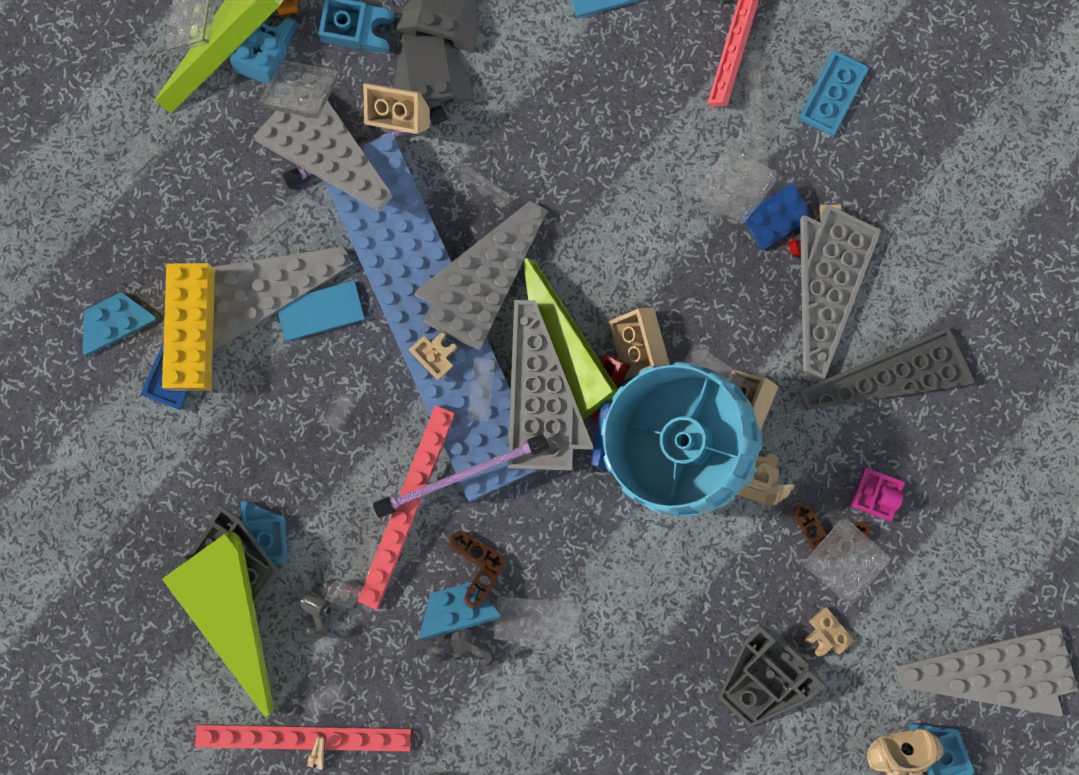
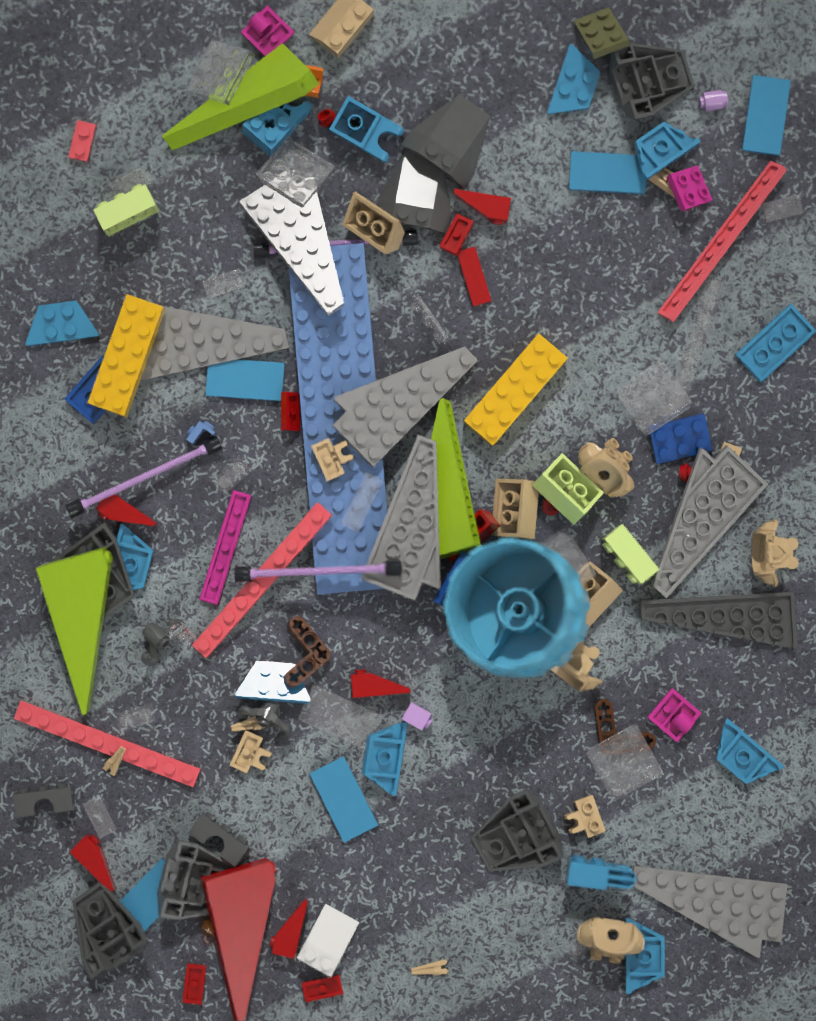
camera: 20 degrees right, 5 degrees up
(77, 134) = (82, 141): none -> coral plate
(140, 183) = (126, 209): none -> yellowish green brick
(188, 499) = (78, 507): none -> lavender hose
(235, 488) = (120, 510): none -> red slope
(287, 380) = (195, 432): none -> medium blue bracket
(312, 29) = (326, 117): none -> red plate
(358, 488) = (225, 547): none -> dark pink tile
(377, 326) = (290, 411): none -> red plate
(444, 663) = (247, 724): none -> tan piece
(456, 693) = (249, 753): none -> tan plate
(482, 96) = (456, 234): none -> red plate
(503, 57) = (489, 206): none -> red slope
(514, 131) = (474, 276): none -> red tile
(558, 575) = (369, 684): none -> red slope
(572, 706) = (343, 799): none -> dark azure tile
(595, 225) = (515, 390): none -> yellow brick
(598, 645) = (384, 756): none -> dark azure wing
(617, 591) = (417, 716): none -> lavender brick
(673, 328) = (548, 508): none -> red plate
(685, 303) = (568, 489): none -> yellowish green brick
(701, 263) = (595, 460): none -> tan piece
(772, 347) = (629, 555): none -> yellowish green brick
(865, 689) = (598, 873): none -> dark azure brick
(911, 295) = (771, 553): none -> tan piece
(963, 510) = (743, 755): none -> dark azure wing

